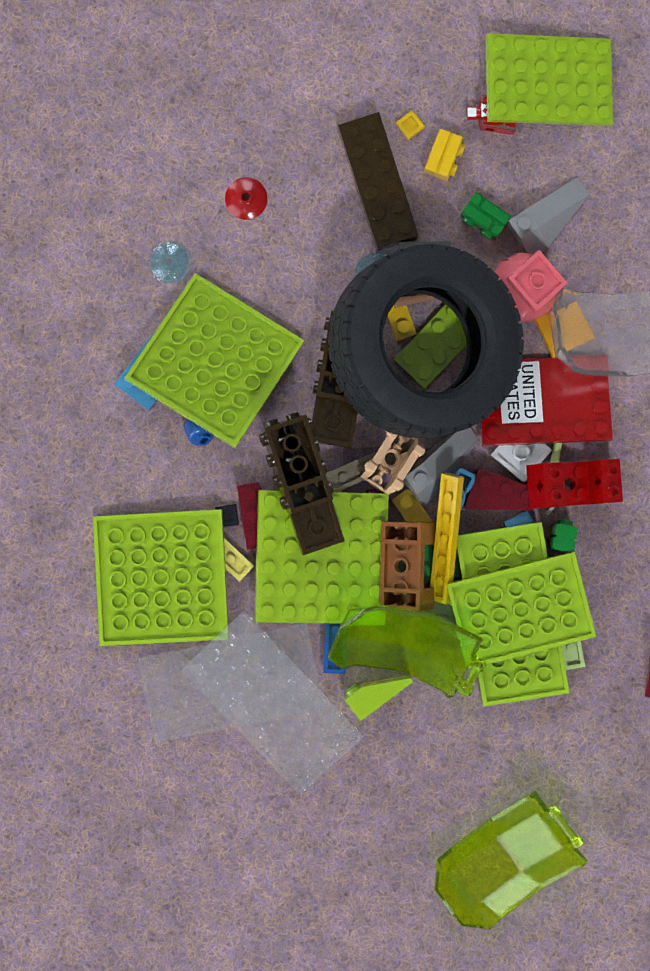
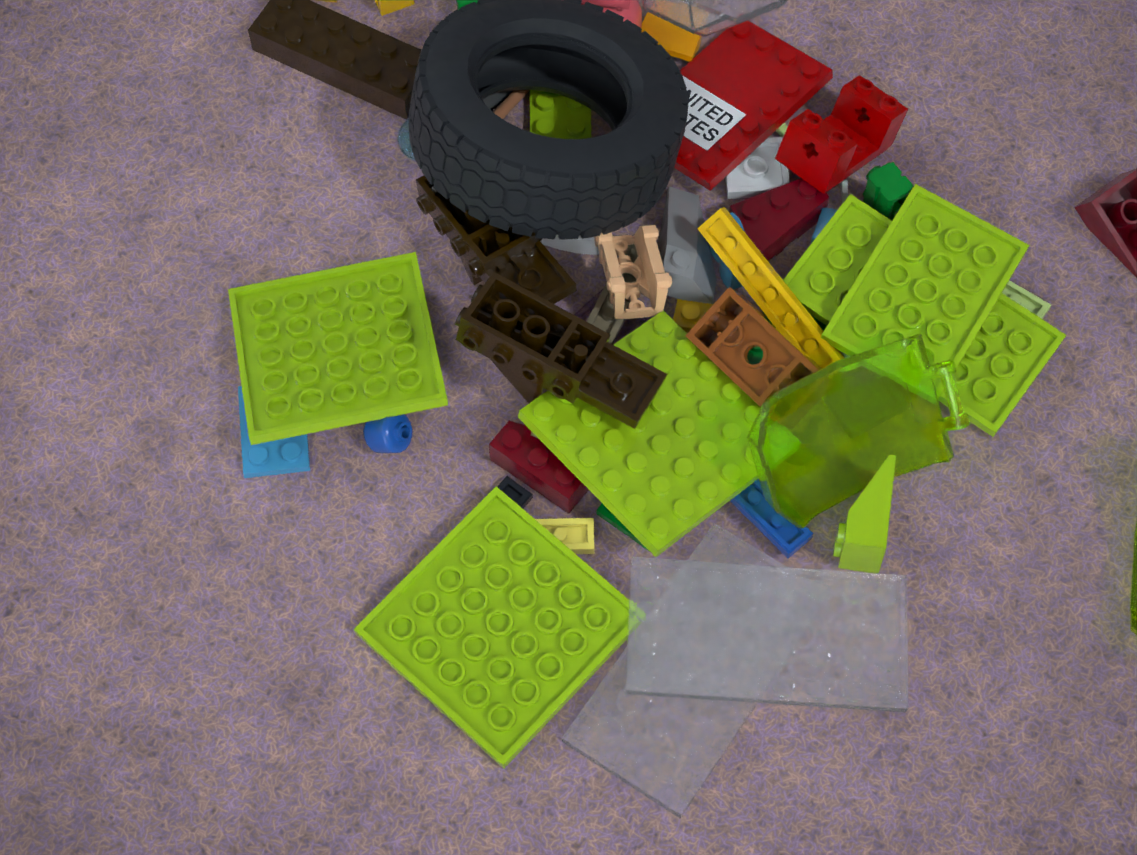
camera: 45 degrees left, 25 degrees down
(177, 270) = (192, 318): clear light blue dish -> none
(246, 209) = (219, 192): red dish -> none

